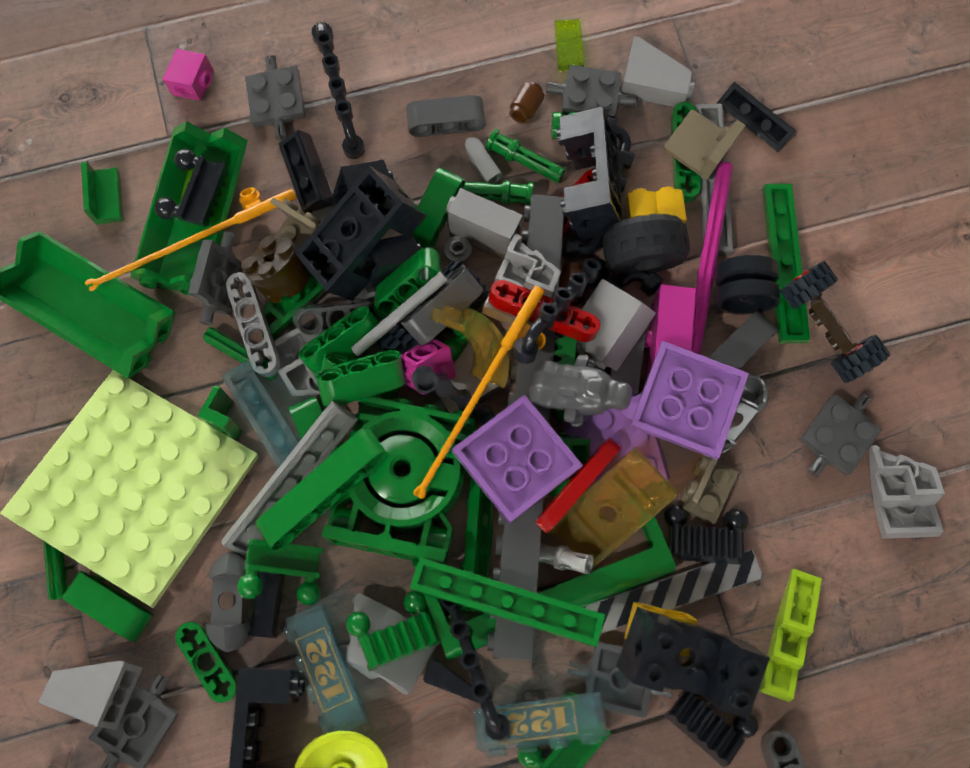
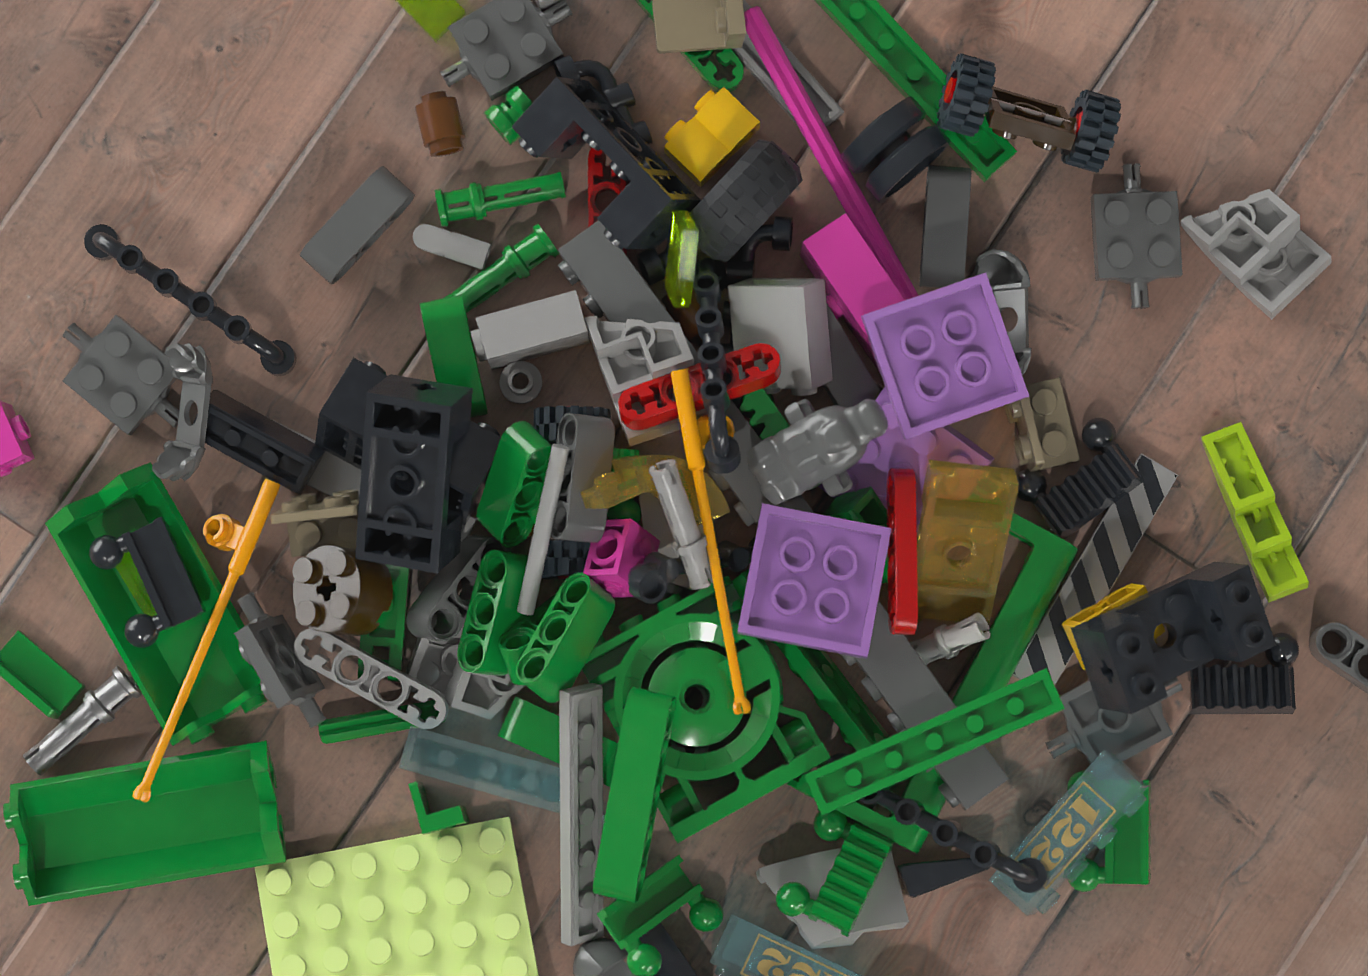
camera: 40 degrees left, 10 degrees up
(115, 232) = (97, 709): none -> flat silver pin
(306, 114) = (185, 453): none -> dark grey piece
(472, 368) = (688, 540): none -> light grey pin
(589, 244) = (681, 259): none -> clear neon green tile

